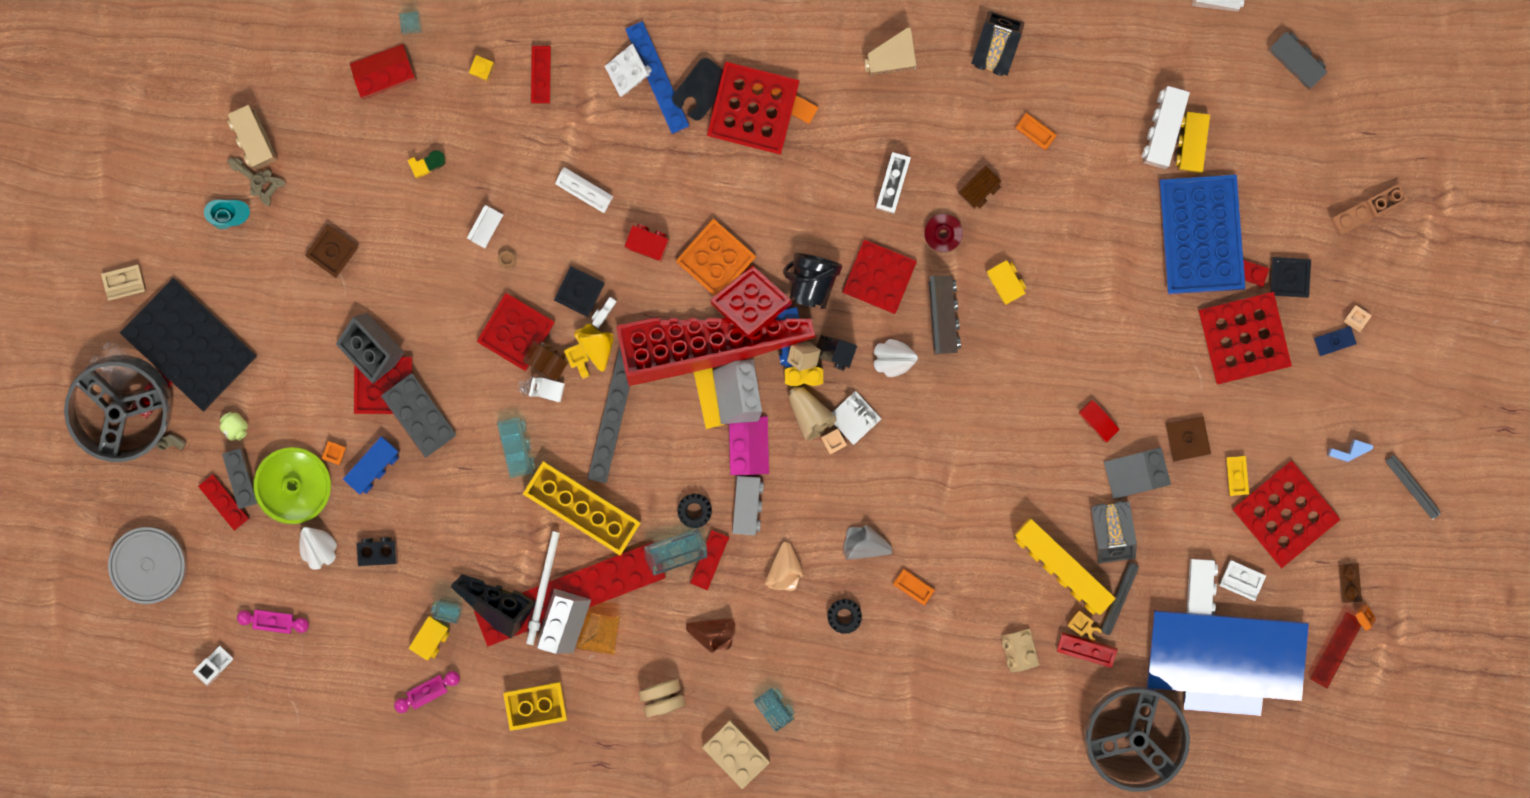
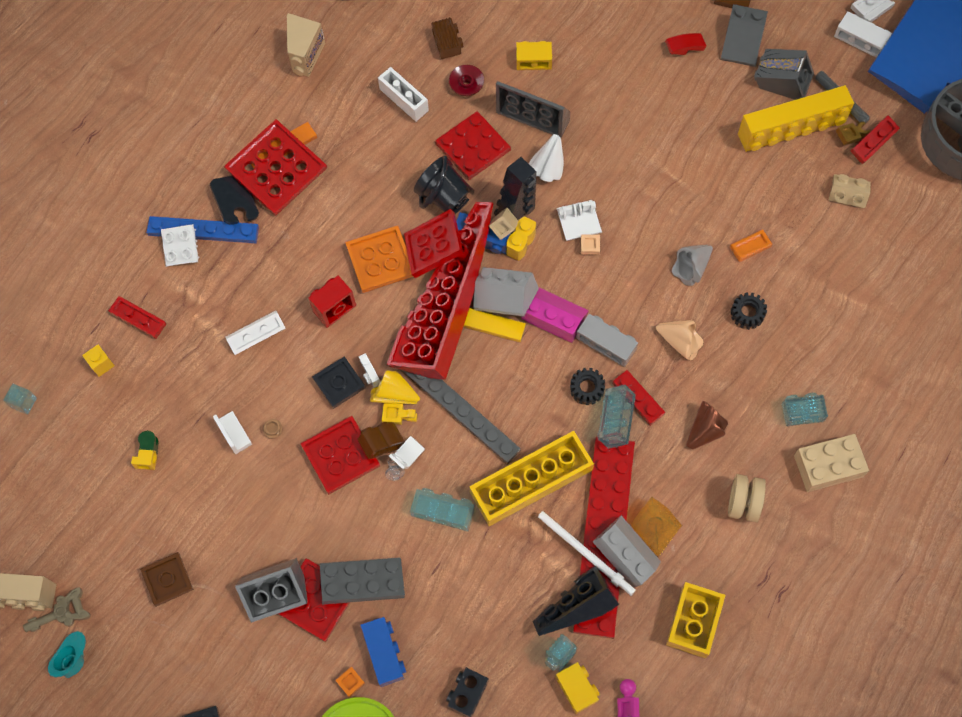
camera: 60 degrees left, 20 degrees down
(382, 72) = (45, 446): red slope -> none
(810, 413) = (555, 248): tan cone -> none

